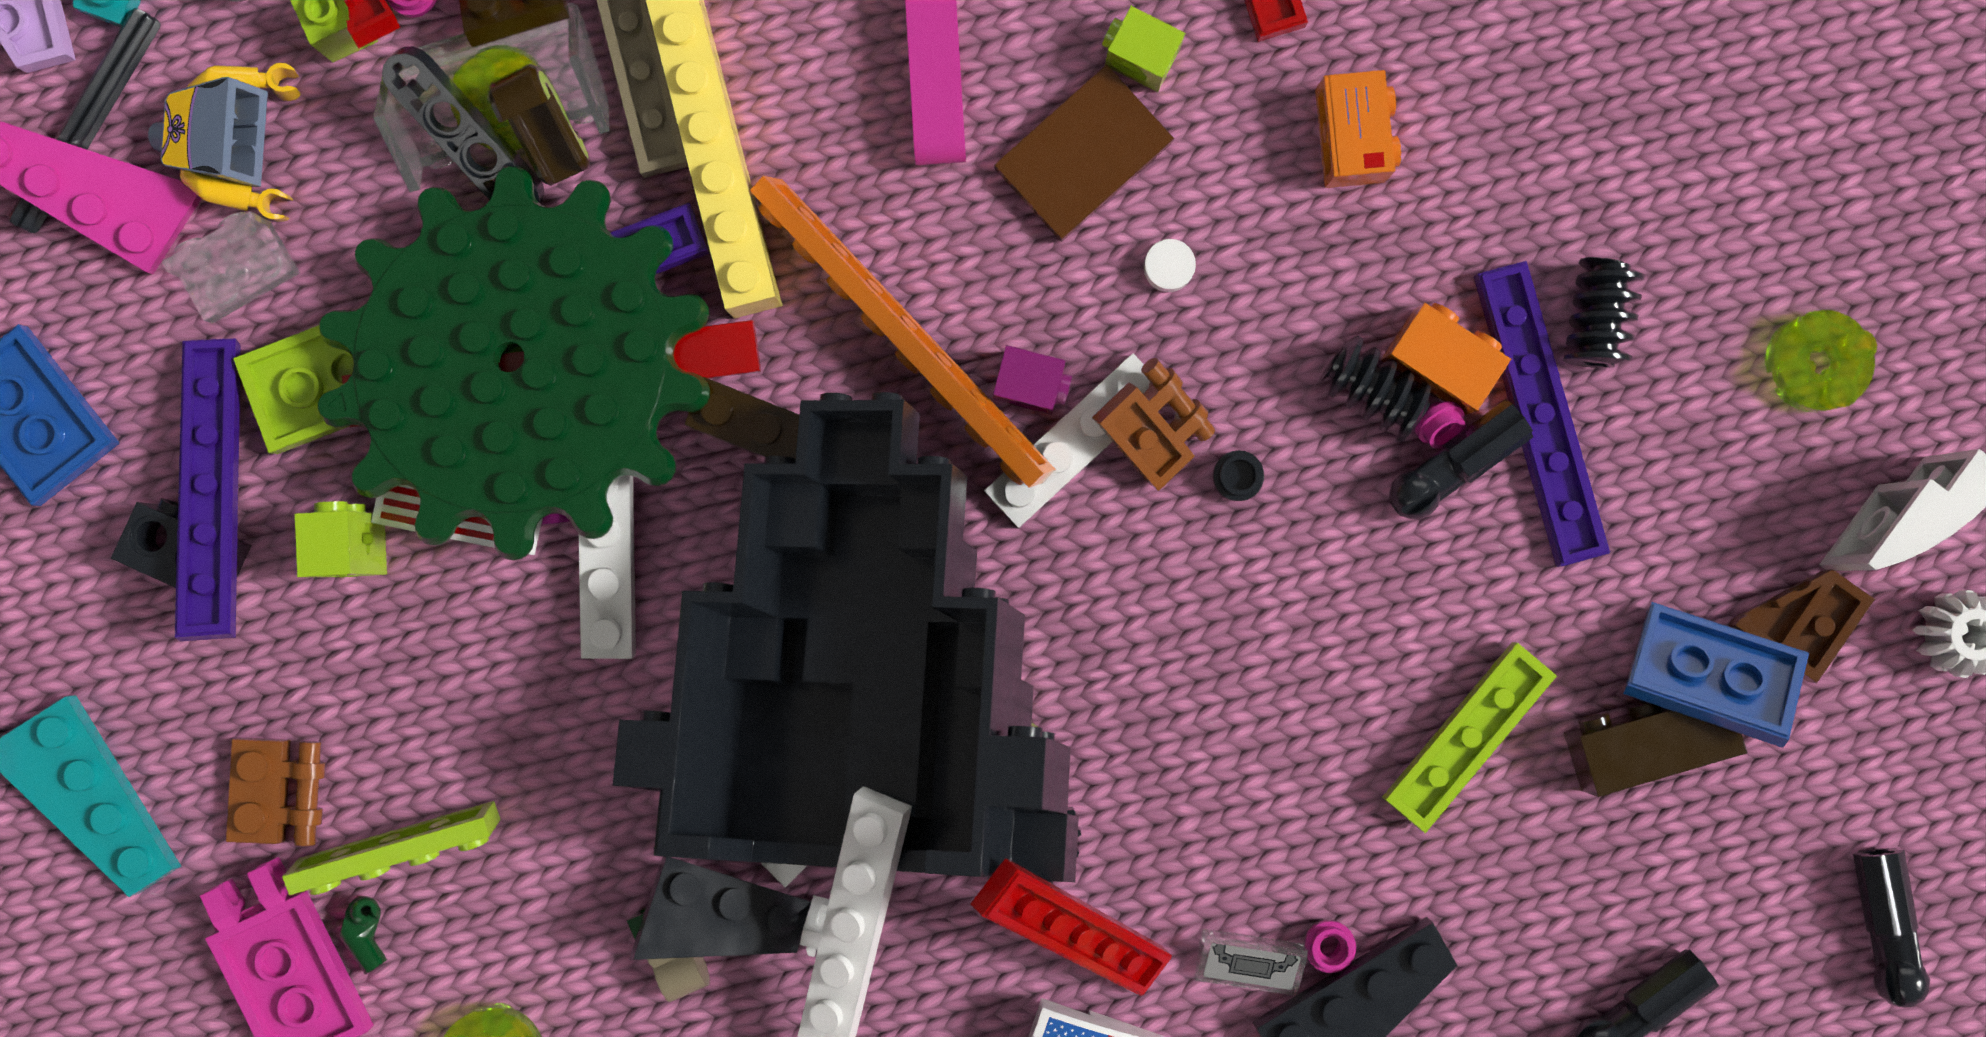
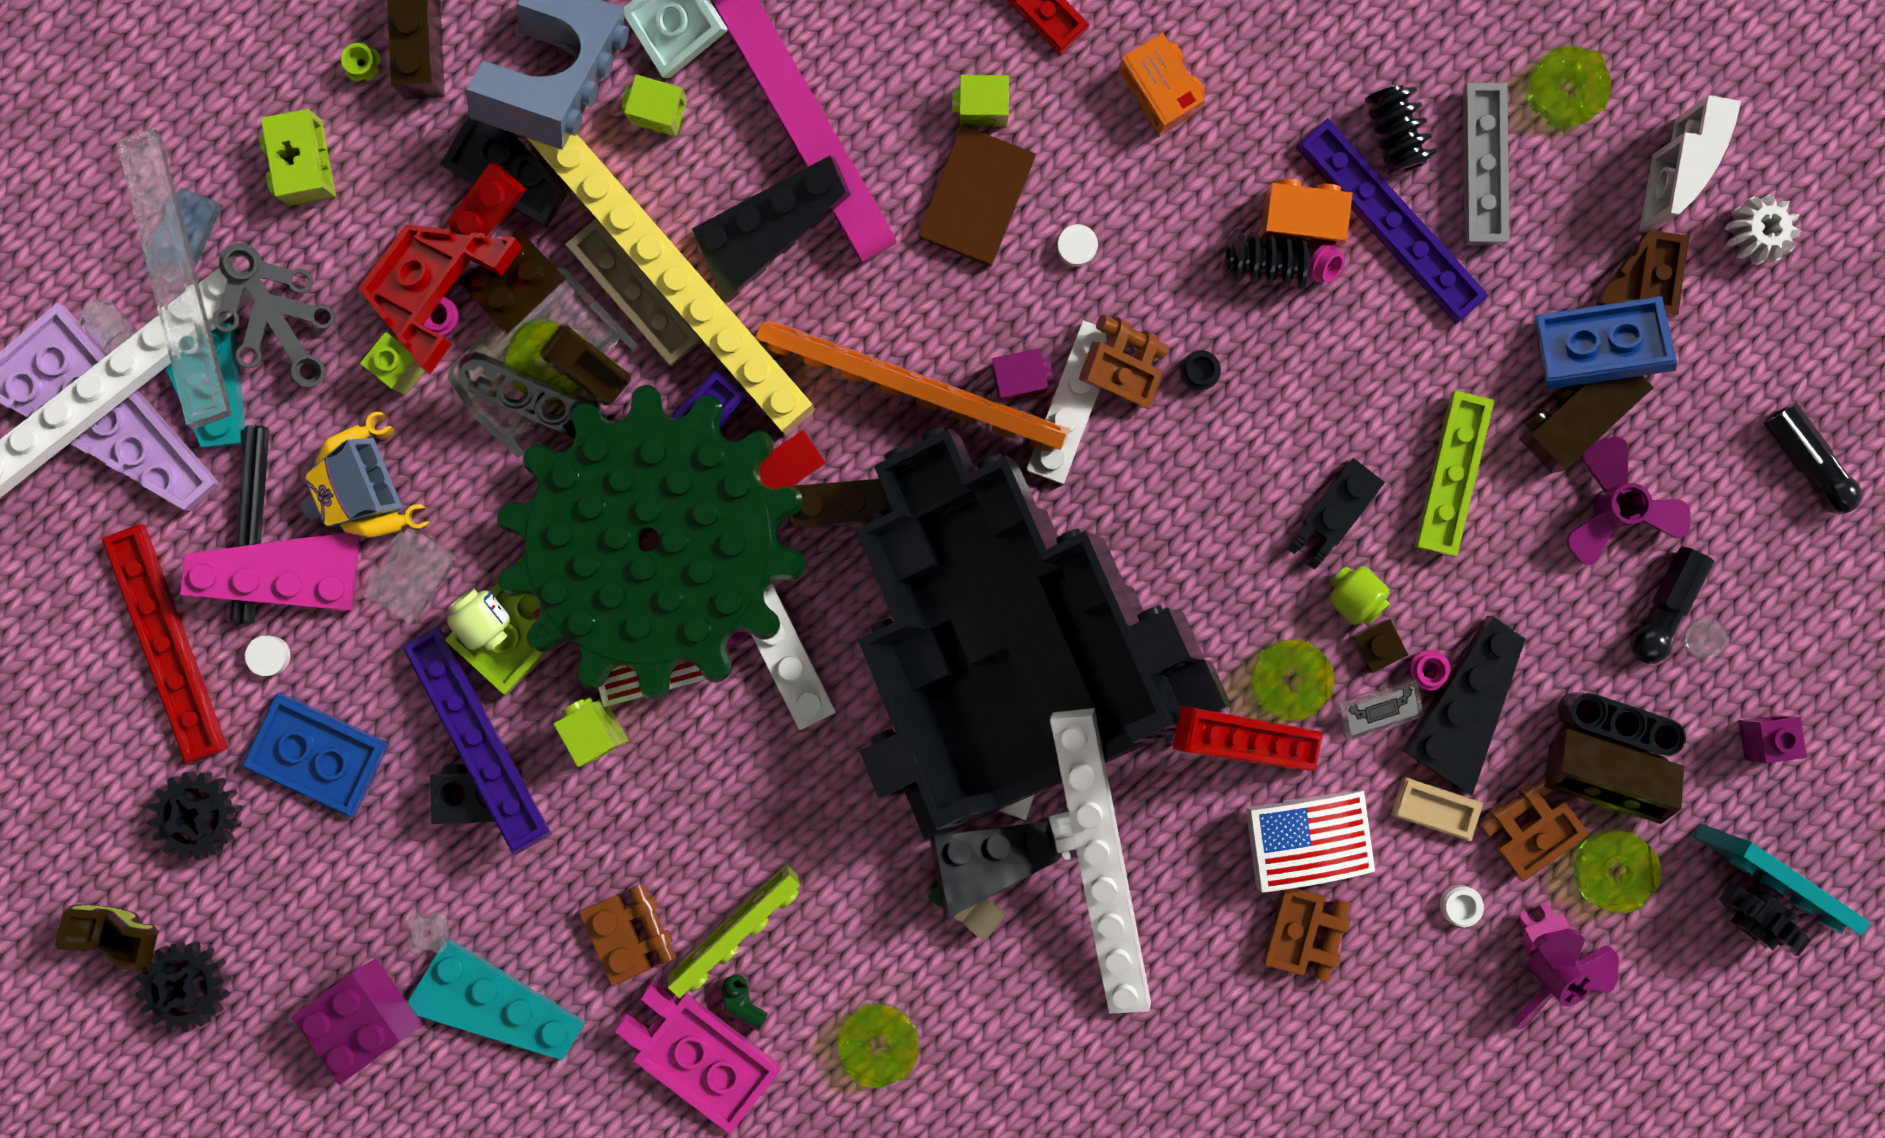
camera: 30 degrees left, 0 degrees up
(31, 277) = (267, 655): none -> white tile
(65, 680) = (439, 933): none -> clear plate
(276, 354) = (478, 620): none -> yellowish green head
(827, 68) = (762, 227): none -> black wing
(1178, 906) = (1308, 696): none -> clear neon green plate
(1286, 890) = (1379, 645): none -> dark brown plate
(1291, 821) = (1359, 595): none -> lime head
(1315, 711) = (1337, 510): none -> black hinge
(1461, 460) = (1352, 281): black piece -> none
(1651, 815) = (1609, 466): none -> magenta piece
(1681, 401) = (1486, 164): none -> light grey plate

